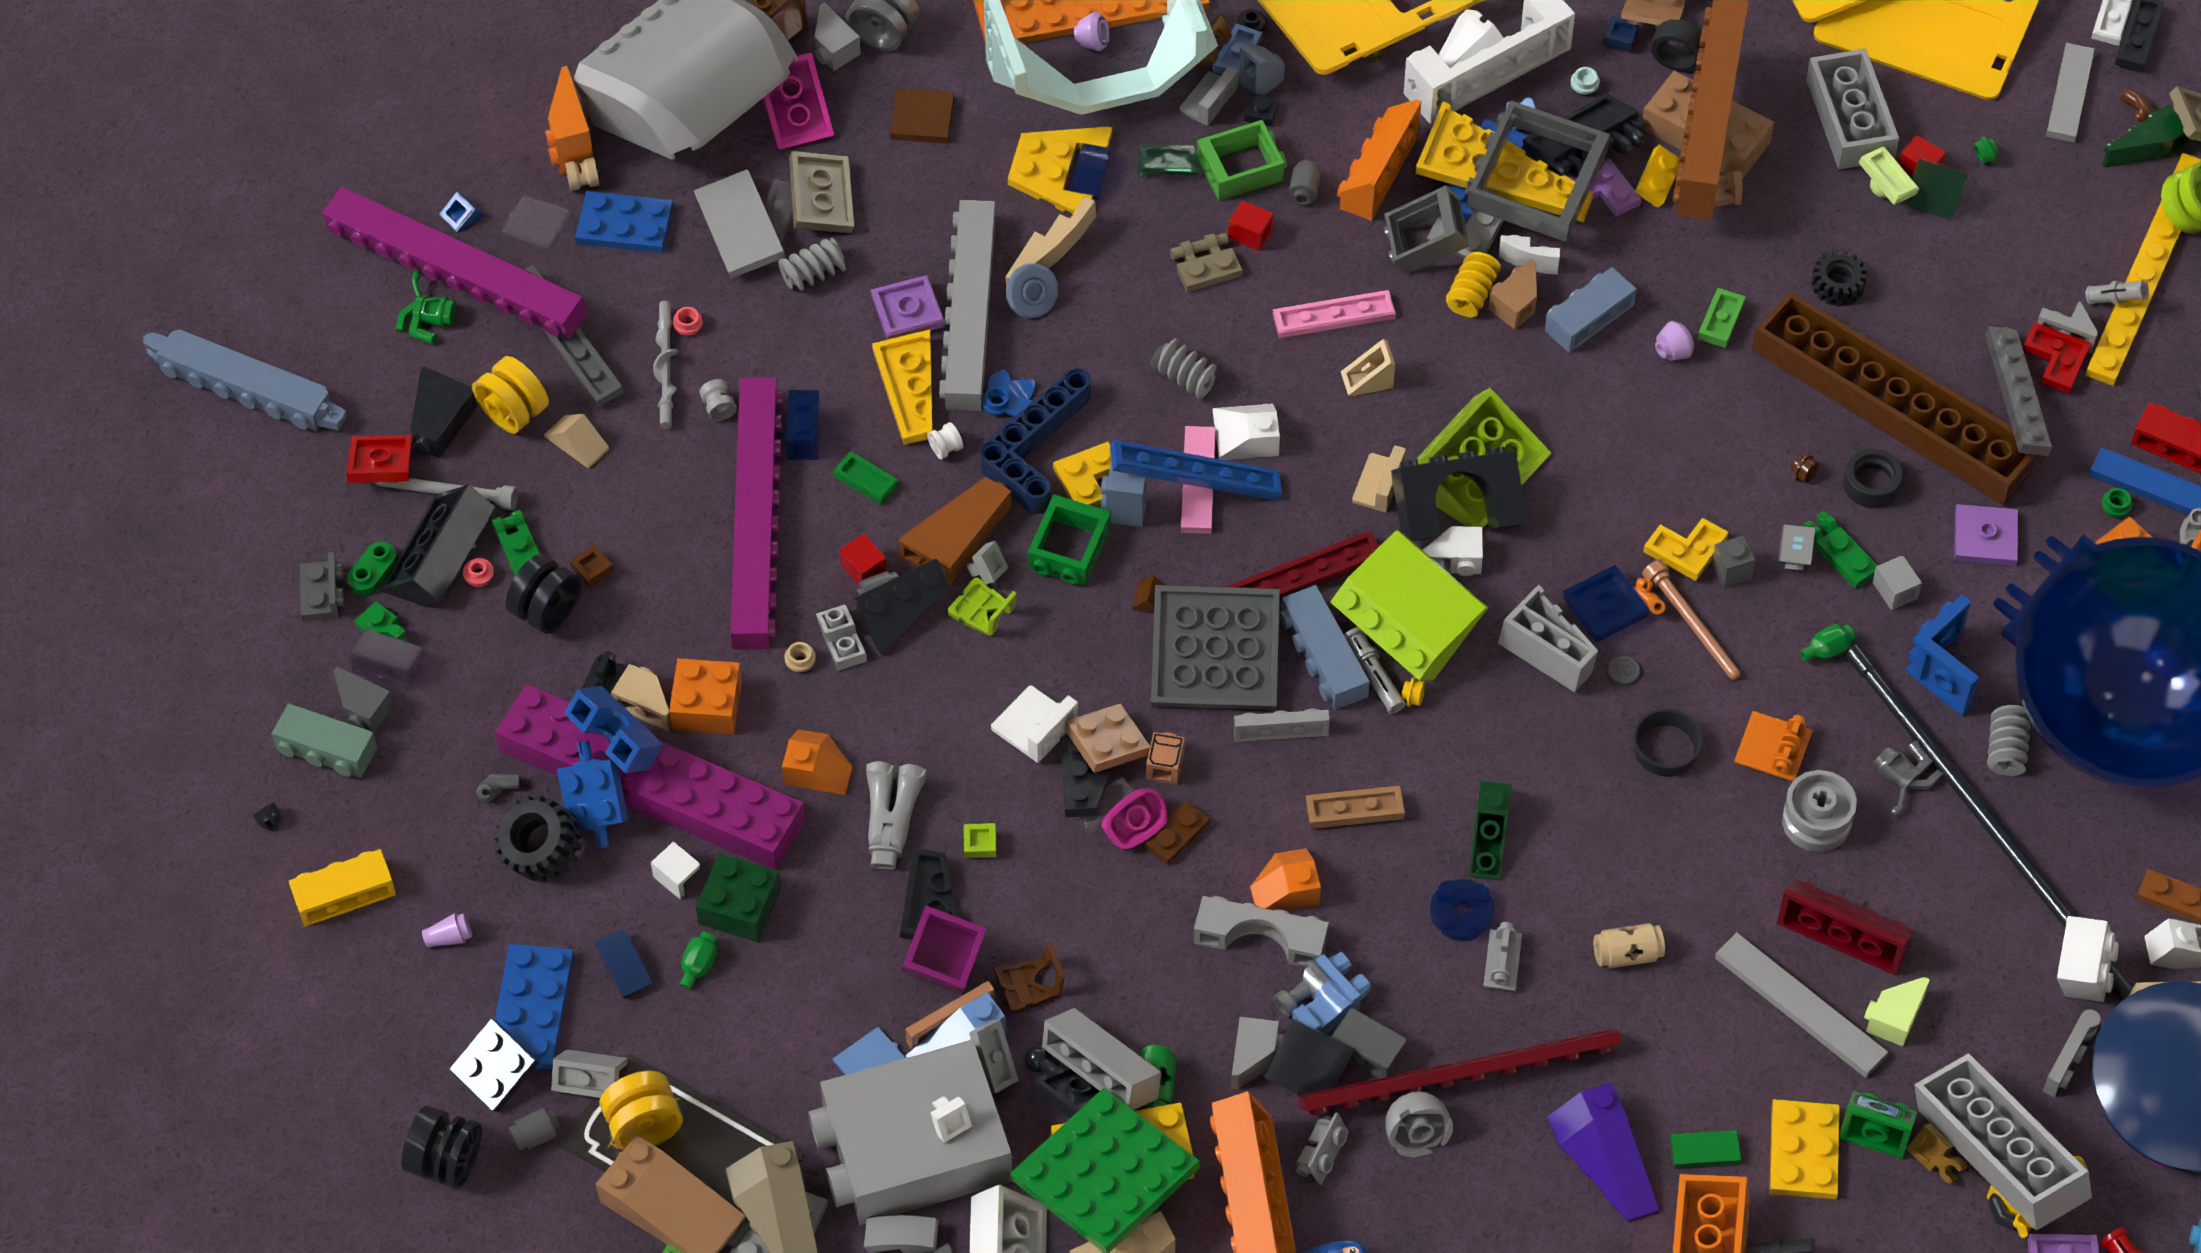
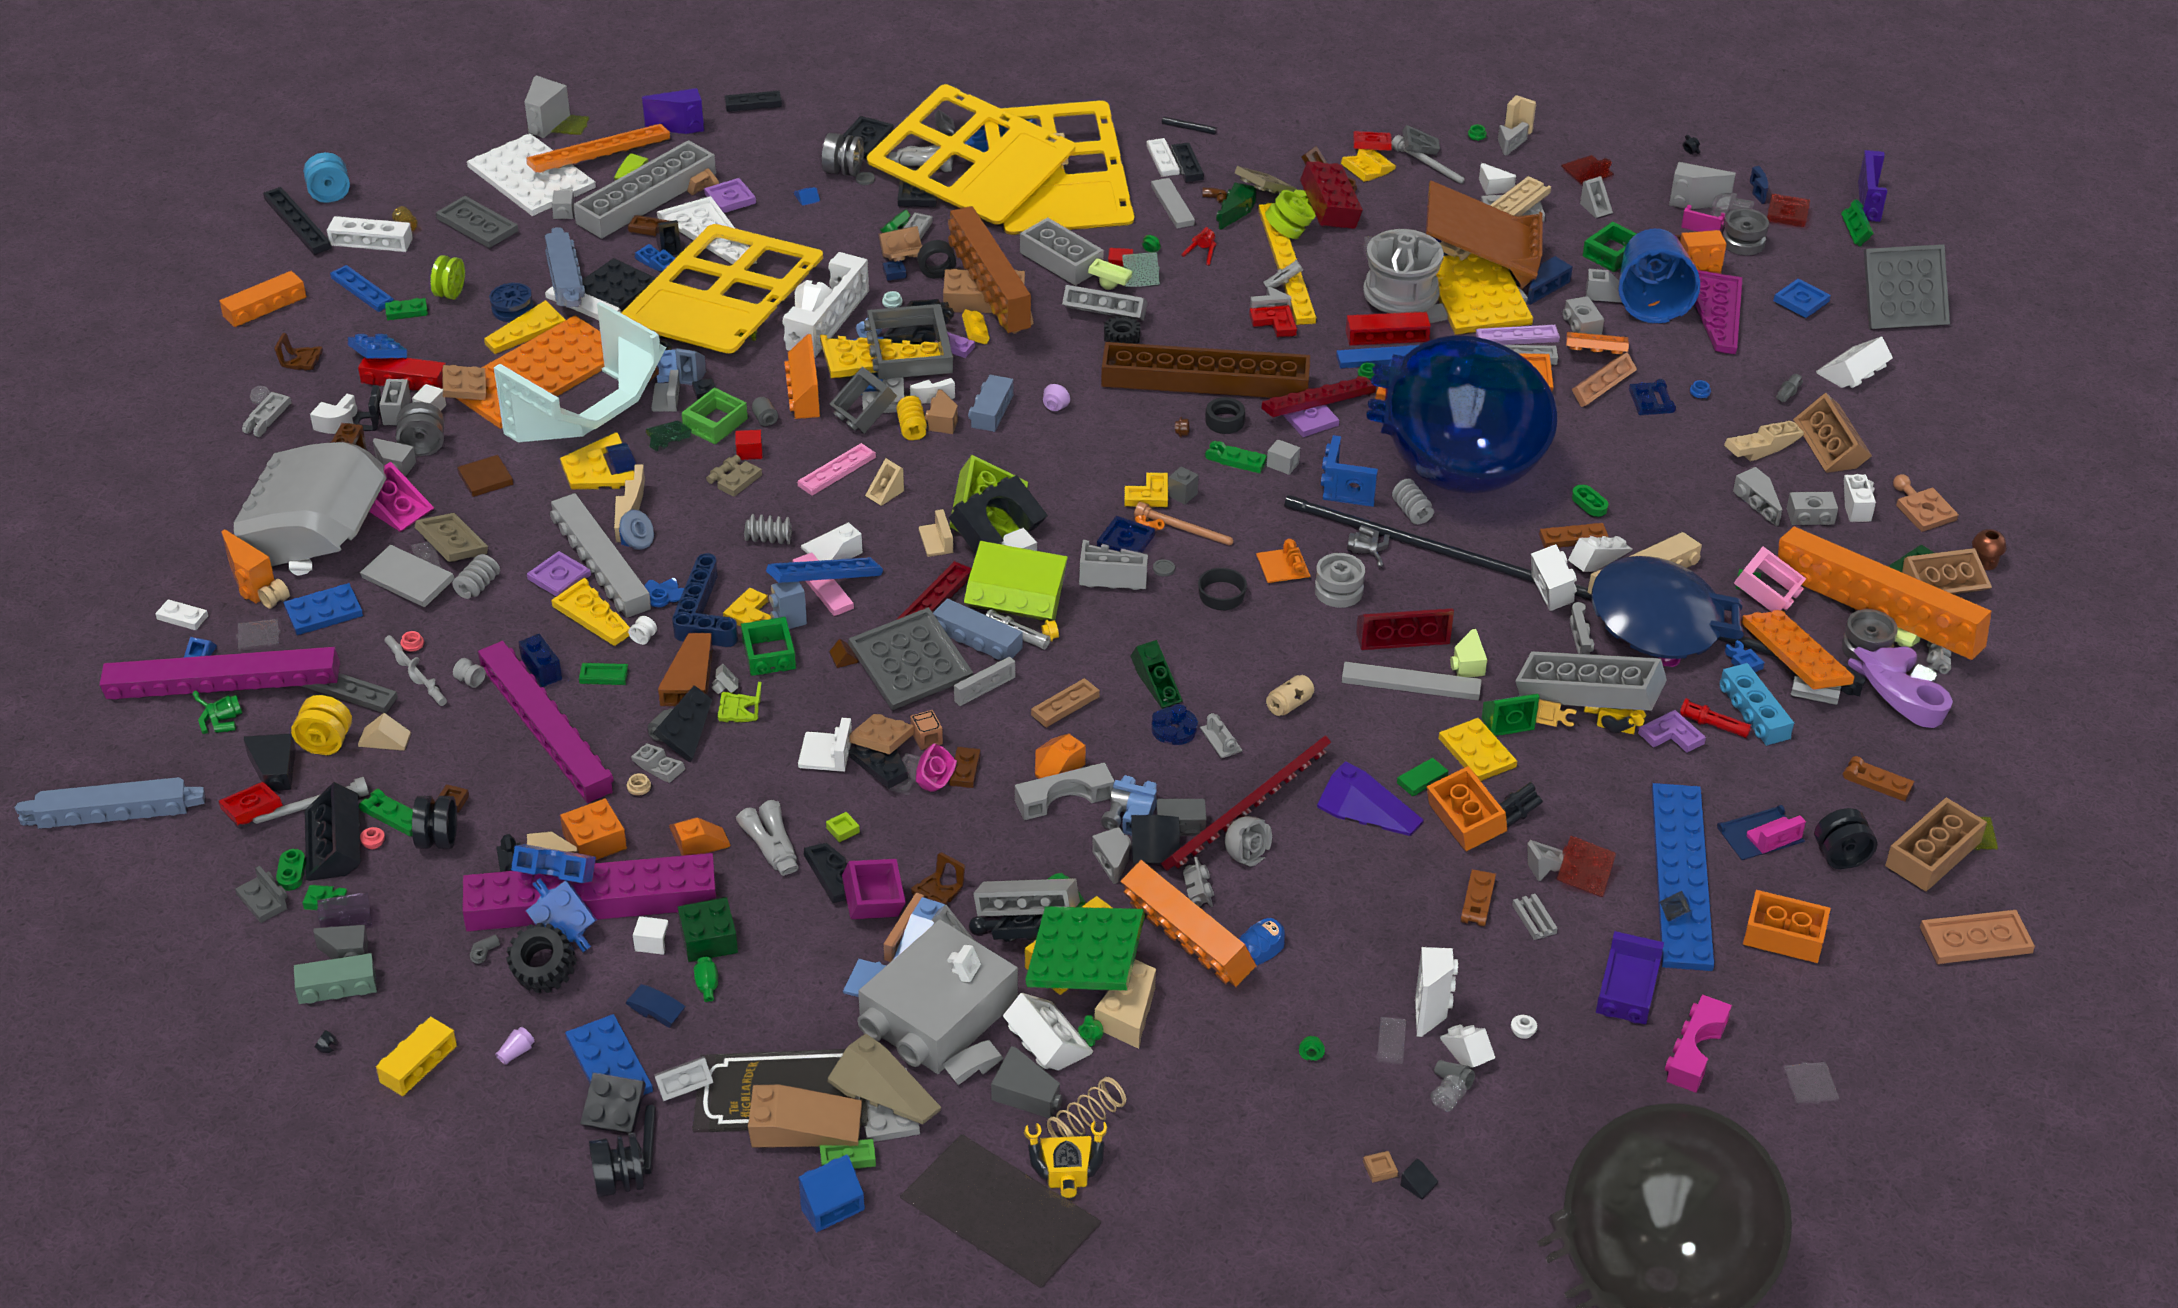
camera: 35 degrees left, 15 degrees down
(472, 151) = (181, 614): none -> white plate
(503, 1132) = (648, 1137): none -> black bar
(534, 1129) = (670, 1127): dark grey brick -> none
(633, 150) = (300, 567): none -> white plate
(641, 1107) = (741, 1067): yellow wheel -> none
(862, 559) = (639, 714): red panel -> none
(1092, 32) = (565, 389): lavender cone -> none
(1721, 317) = (1071, 377): bright green plate -> none
(1796, 546) = (1212, 462): light grey brick -> none
(1829, 643) = (1271, 501): green plant -> none
(1846, 221) = (1104, 302): none -> light grey brick
(2014, 512) = (1319, 396): none -> dark red plate
(2018, 391) = (1271, 338): flat silver plate -> none
(2061, 178) = (1204, 240): none -> red plant

